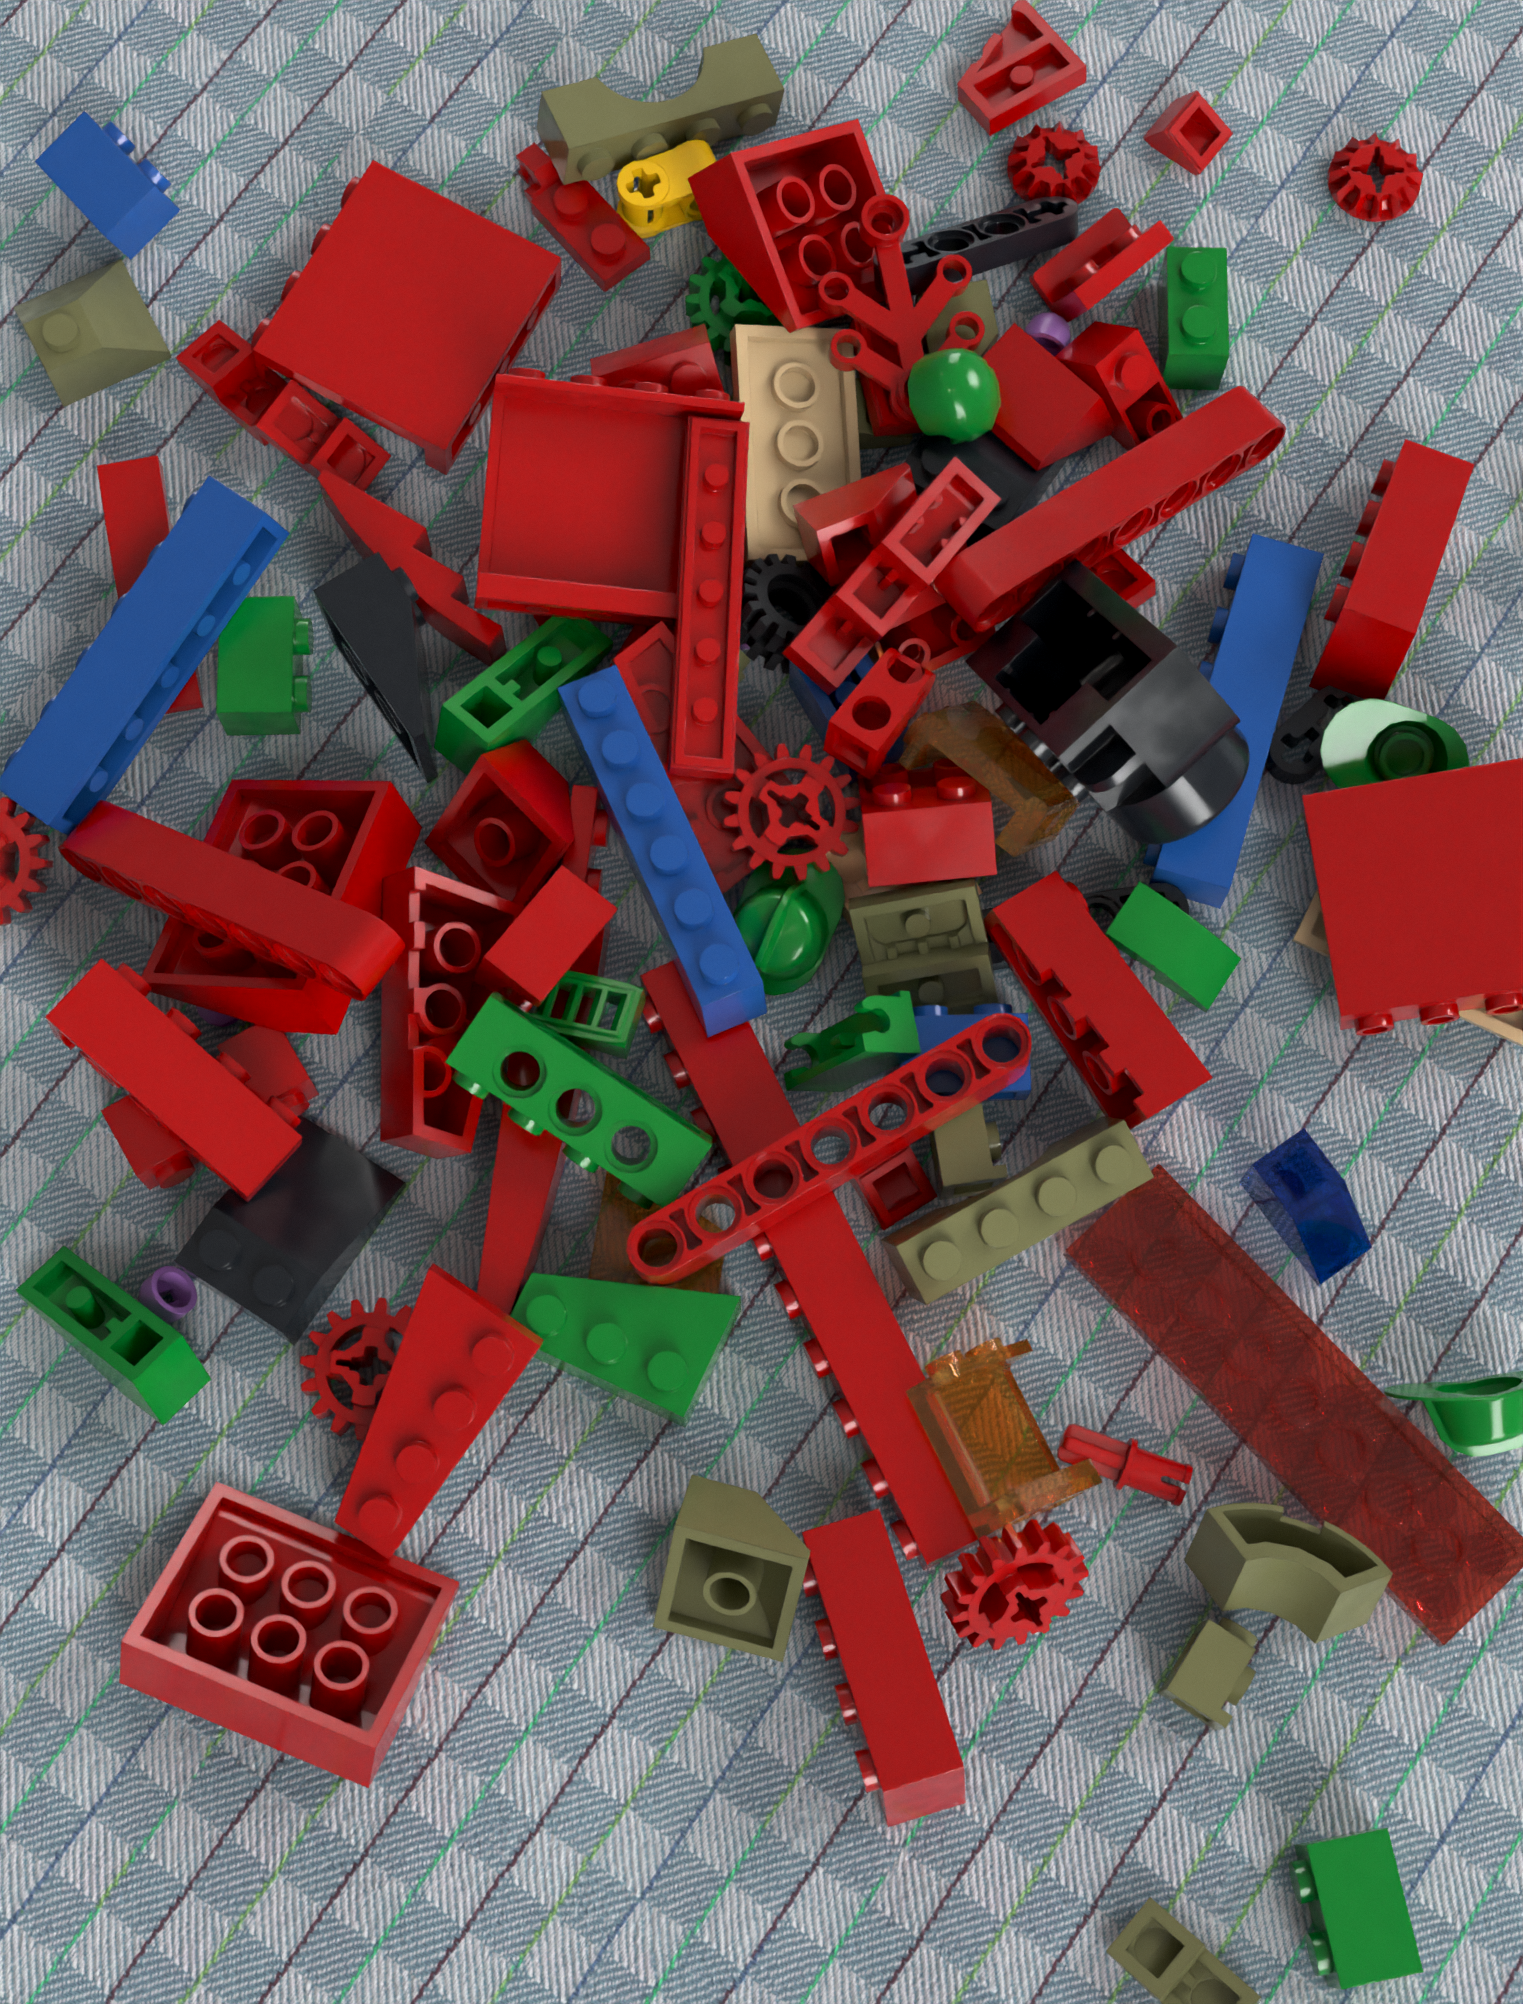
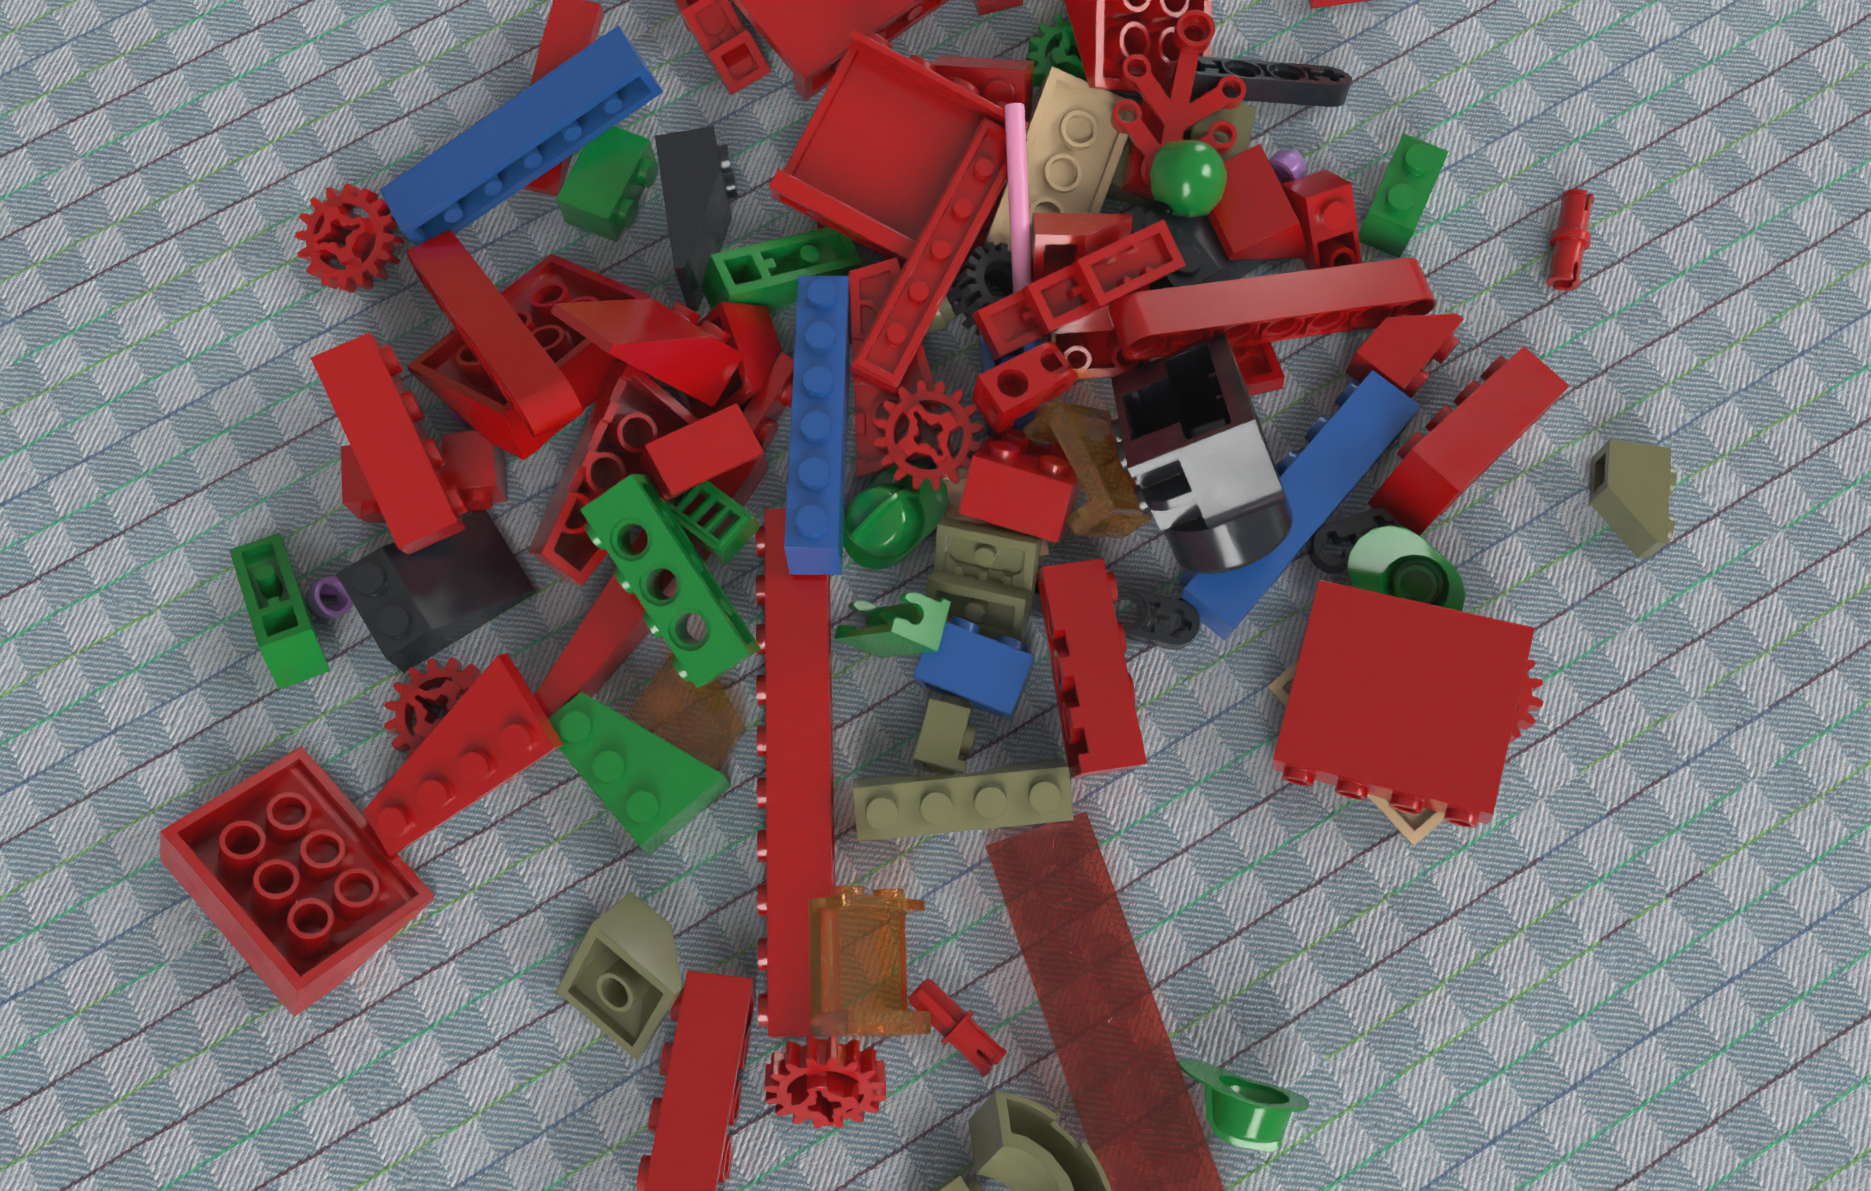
camera: 25 degrees right, 0 degrees up
(405, 543) = (746, 146): red slope -> none
(438, 829) = (658, 342): none -> red slope
(772, 496) = (1018, 195): none -> bright pink bar
(847, 1121) = (812, 684): red beam -> none
(894, 1188) = (882, 738): red slope -> none
(1028, 157) = (1329, 49): red gear -> none
(1097, 263) = (1347, 128): red bracket -> none
(1173, 946) = (1171, 653): green slope -> none
(1189, 133) = (1463, 62): red slope -> none
(1274, 494) = (1404, 348): none -> red slope
(1308, 1206) = (1185, 893): clear blue slope -> none
(1355, 190) = (1570, 148): red gear -> none
(1399, 295) = (1570, 239): none -> red pin

